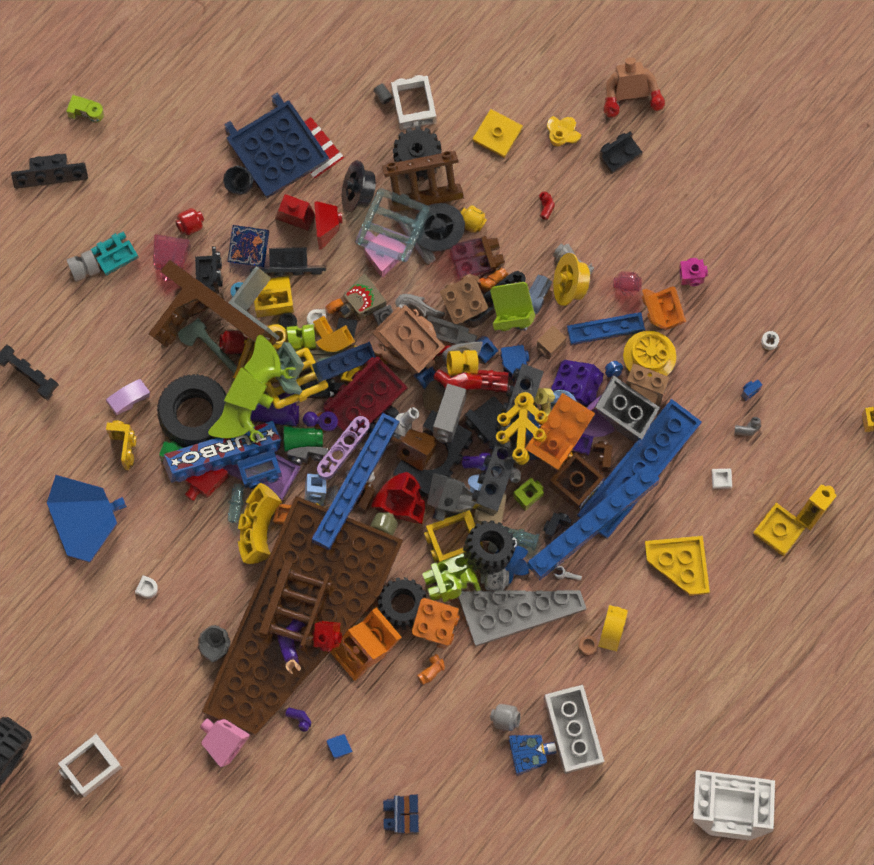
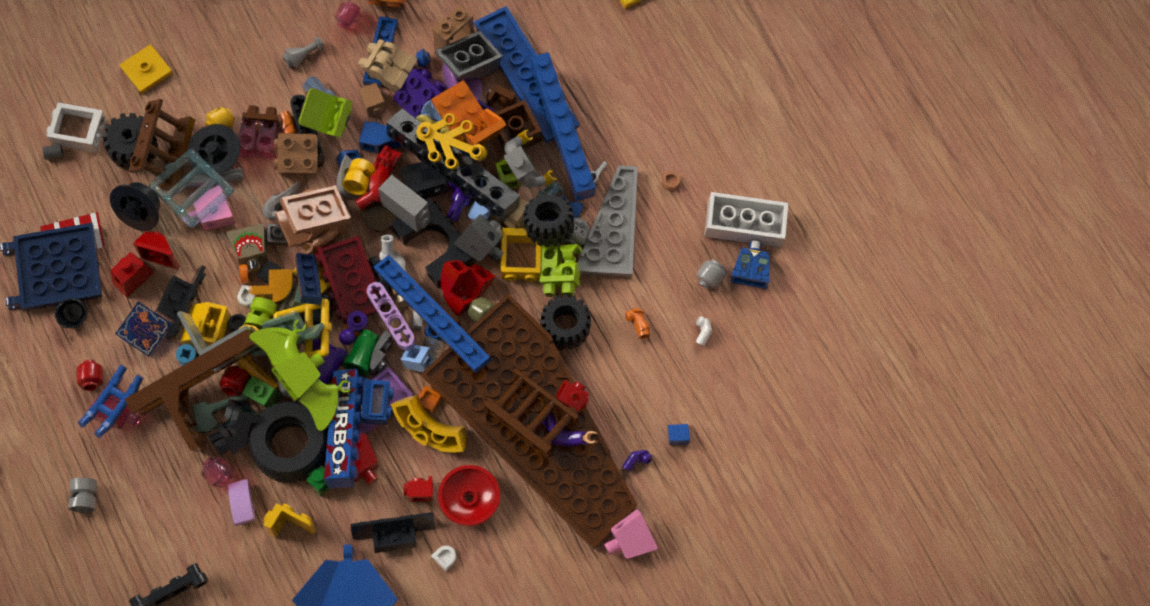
camera: 70 degrees left, 5 degrees down
(118, 256) = (90, 459): teal plate -> none
(145, 364) = (216, 472): none -> clear pink head
(149, 535) = (394, 532): none -> black bracket
(162, 241) = (111, 389): none -> blue piece
(183, 361) = (234, 431): none -> black hips
(196, 540) = (419, 490): none -> red brick
(203, 571) = (465, 482): none -> red dish
(209, 270) = (149, 368): black bracket -> none
(213, 643) = (530, 510): dark grey hair -> none
(228, 369) = (261, 392): none -> bright green bracket
(235, 503) = (397, 439): clear light blue axle -> none
(365, 644) = (592, 367): orange bracket -> none
(405, 815) = (758, 399): dark blue hips -> none
(415, 447) = (421, 251): reddish brown torso -> none
(425, 376) = (356, 221): blue slope -> none
(435, 622) = (598, 297): orange bracket -> none
(449, 733) = (706, 330): none -> white arm
(451, 332) = (322, 178): dark grey hinge -> none
(532, 501) = (521, 164): none -> light grey torso
(547, 203) = (237, 53): red arm -> none
(551, 526) = (546, 163): black bracket -> none
(564, 129) = (173, 14): yellow plate -> none
(570, 279) = (321, 58): yellow wheel -> none
(590, 332) = (387, 64): none -> tan hips
(613, 628) = (666, 149): yellow brick -> none
(650, 351) = (418, 20): yellow wheel -> none
(681, 562) = (628, 73): yellow plate -> none
(721, 479) = (564, 13): white tile -> none
(733, 805) = (866, 114): white slope -> none

